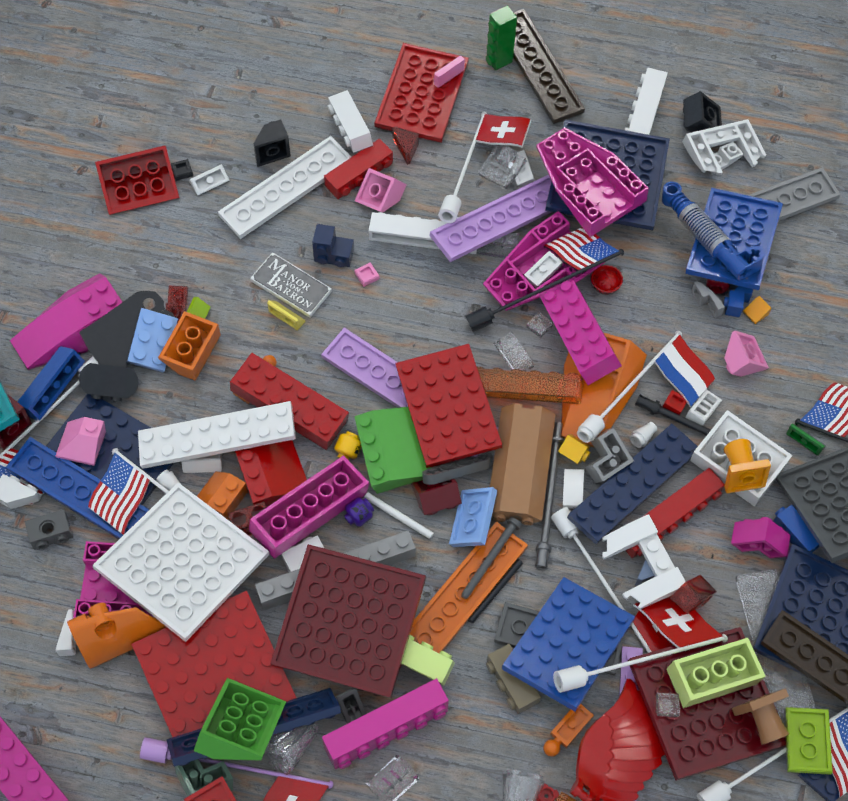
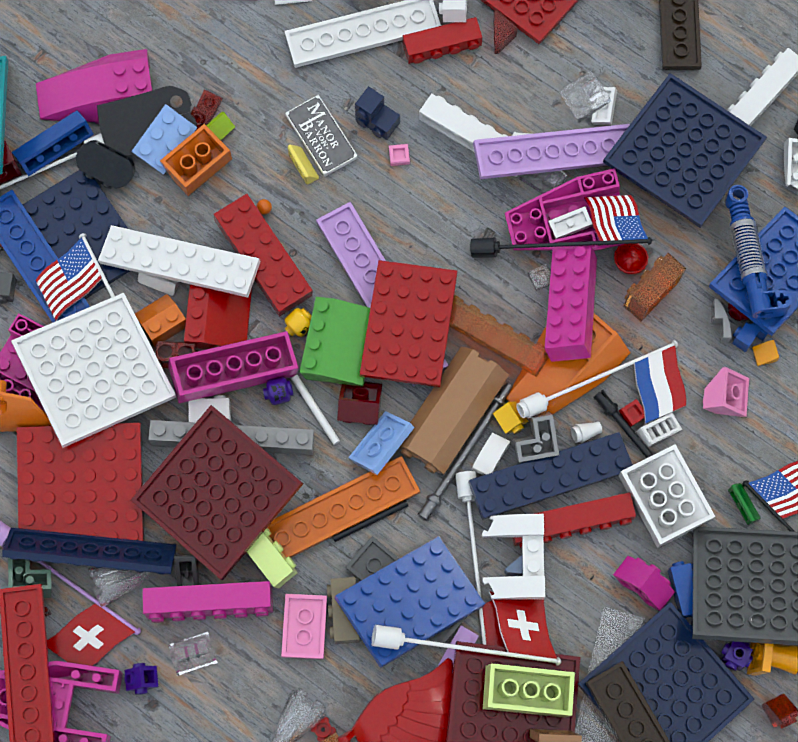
camera: 25 degrees right, 10 degrees up
(82, 440) = (56, 214): bright pink slope -> none
(167, 479) = (120, 285): white cone -> none
(239, 723) = (74, 544): bright green slope -> none
(380, 191) = (451, 73): bright pink slope -> none
(456, 469) = (387, 389): dark grey beam -> none
(483, 710) = (304, 626): none -> bright pink plate
(492, 131) = (594, 55): flag -> none
(512, 525) = (415, 466): dark grey bar -> none
(513, 353) = (500, 297): clear brick -> none
(567, 730) = (371, 679): orange plate -> none
(590, 180) = (658, 150): dark pink wedge -> none
(639, 292) = (653, 286): none -> clear orange brick
(667, 704) = (468, 700): clear plate -> none
(693, 594) = (550, 607): clear red piece -> none
(744, 471) = (656, 514): light orange plant -> none

